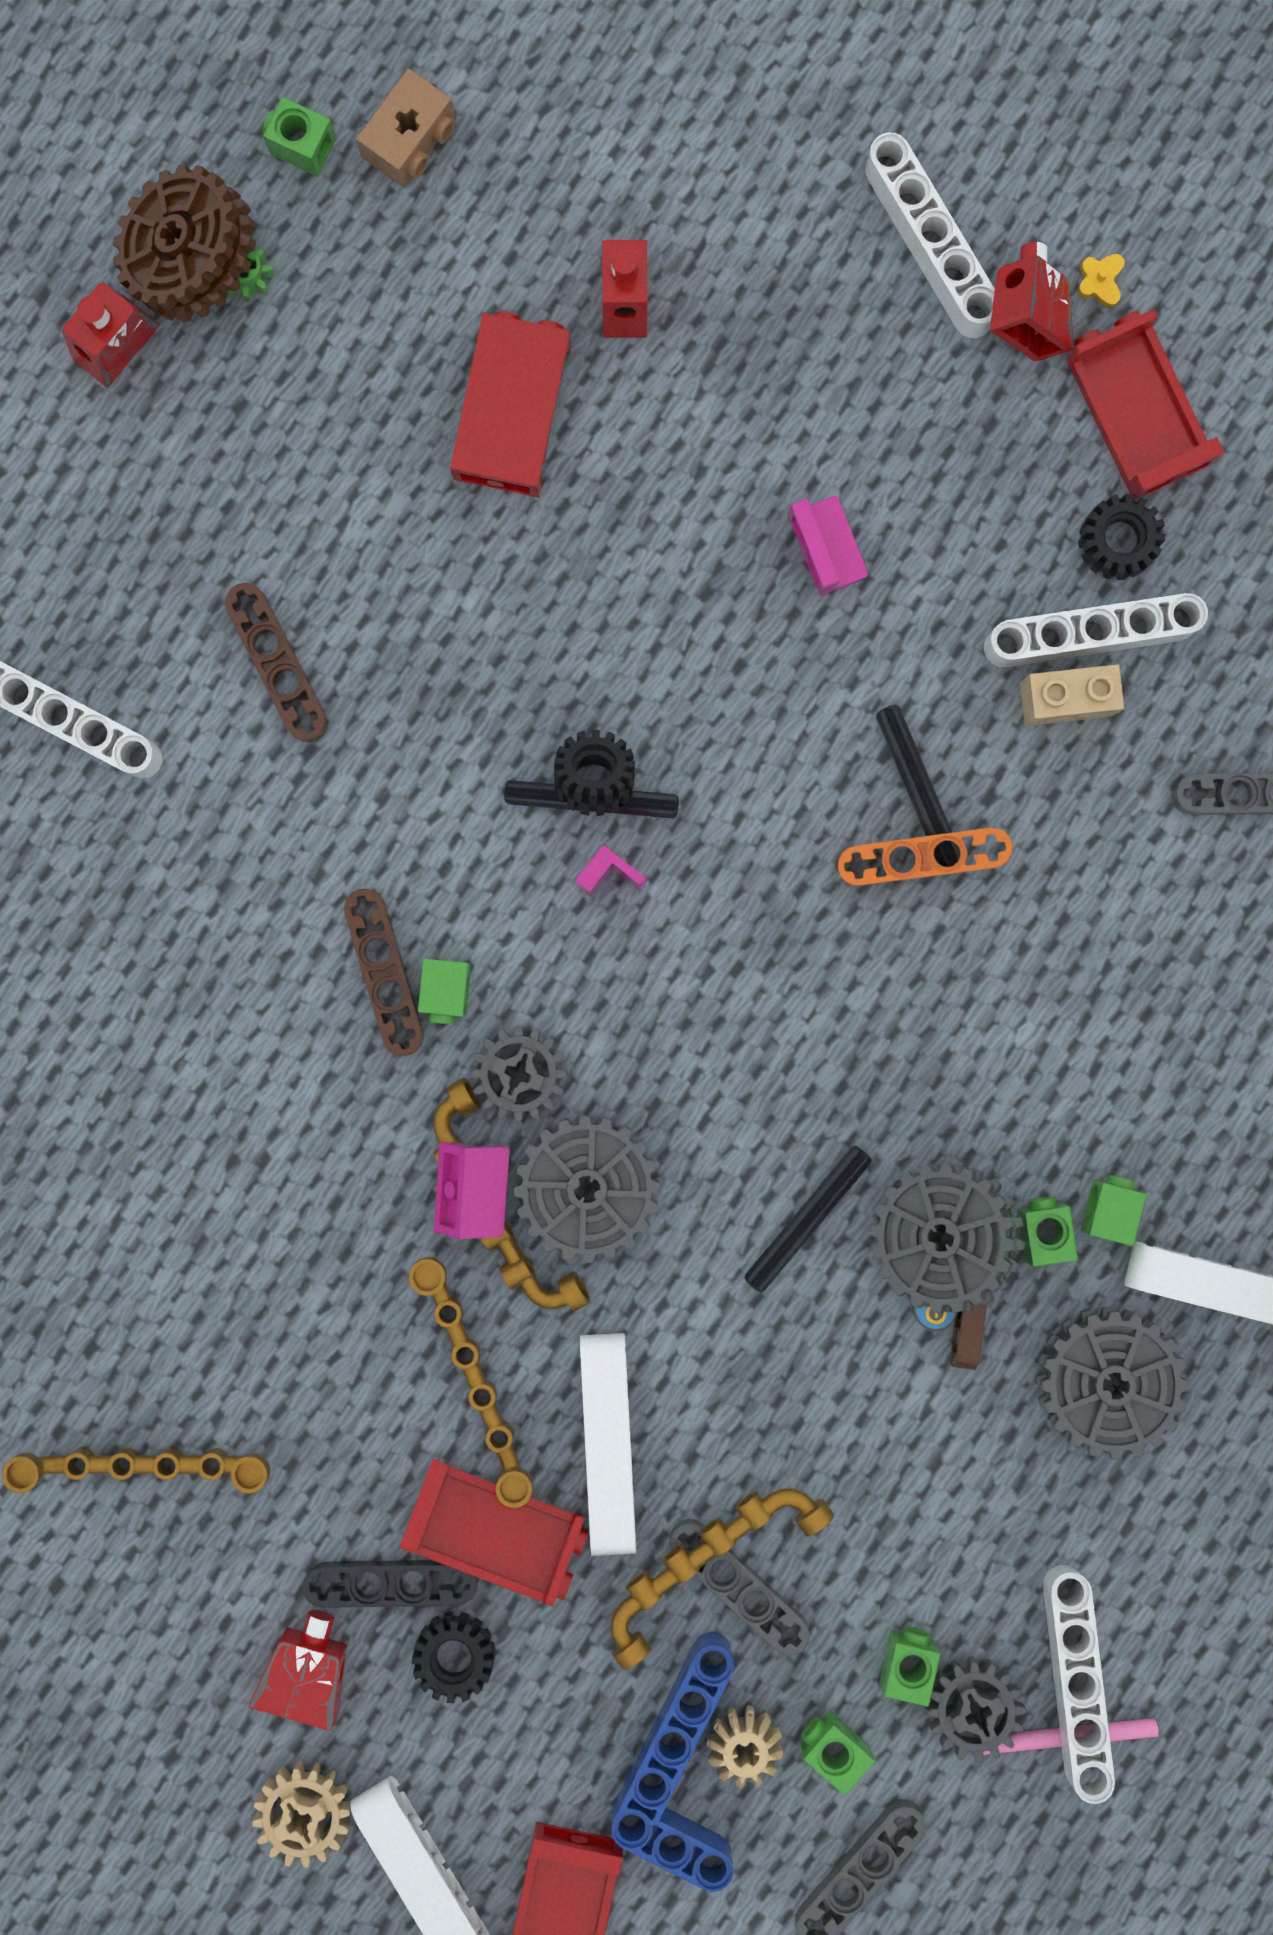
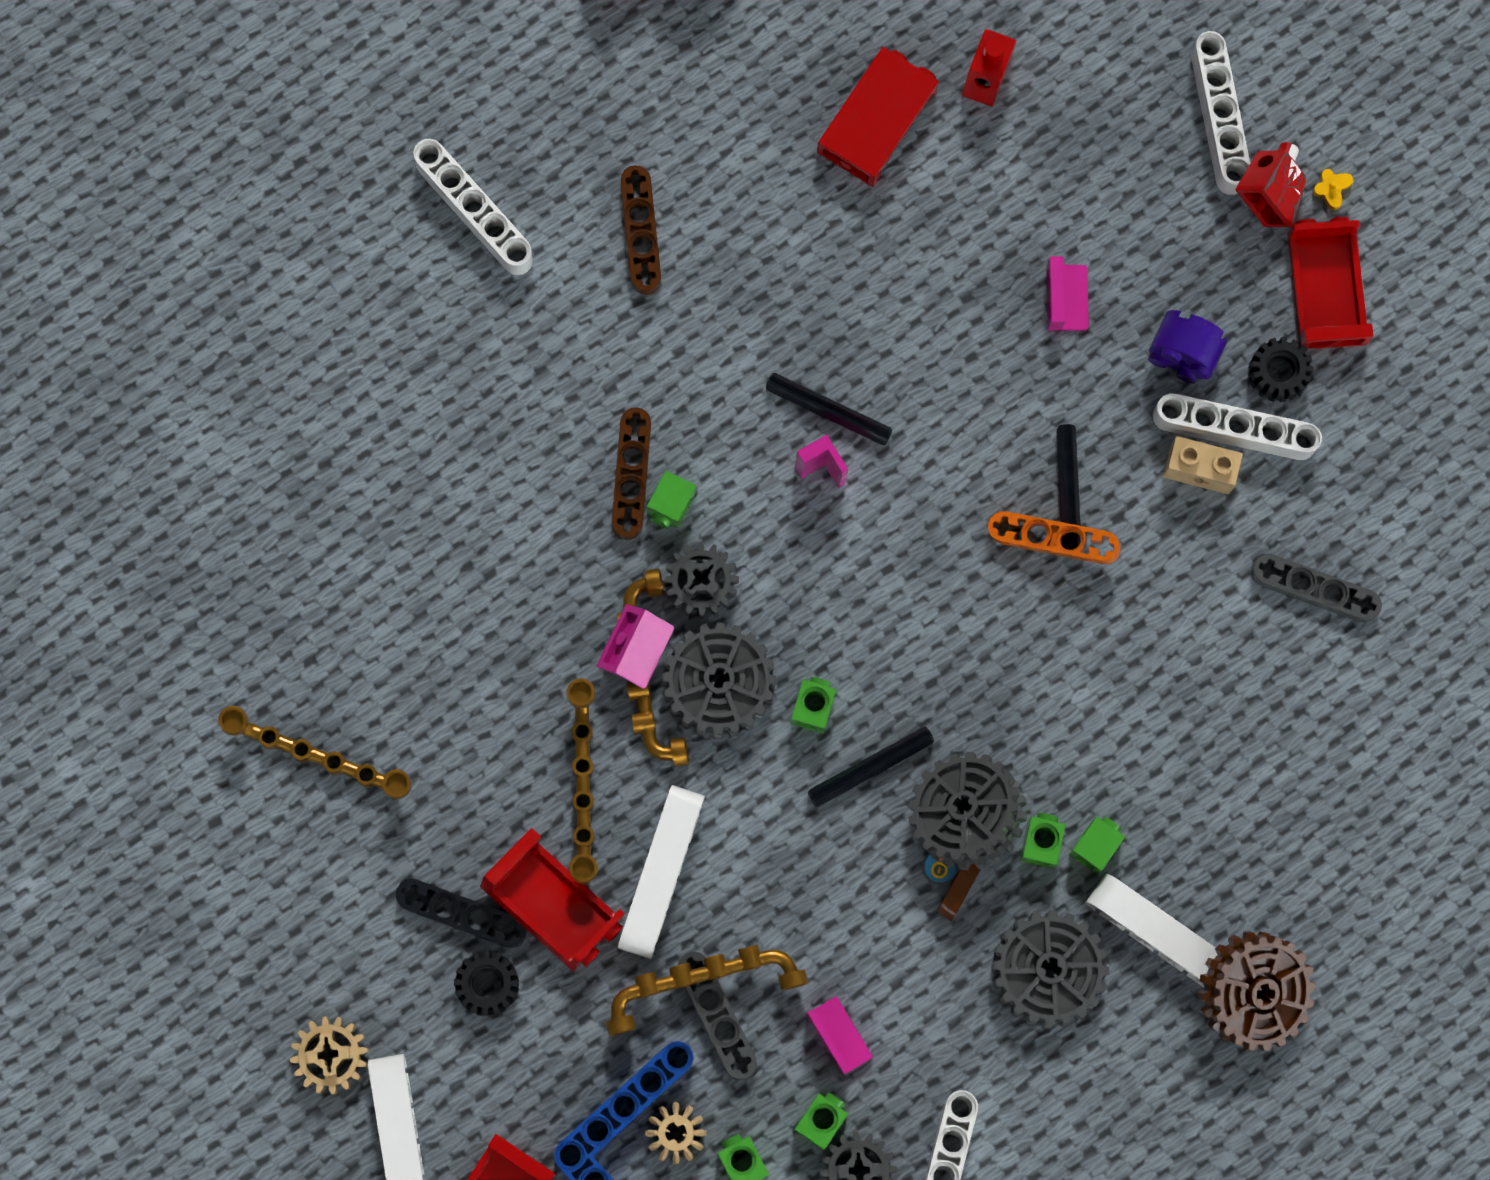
camera: 15 degrees right, 10 degrees down
(304, 1675) = (373, 951): red torso -> none
(599, 752) = (834, 402): black tyre -> none
(712, 1193) = (808, 719): none -> bright green brick
(891, 1557) = (839, 1035): none -> dark pink panel
(1001, 553) = (1187, 346): none -> dark purple brick

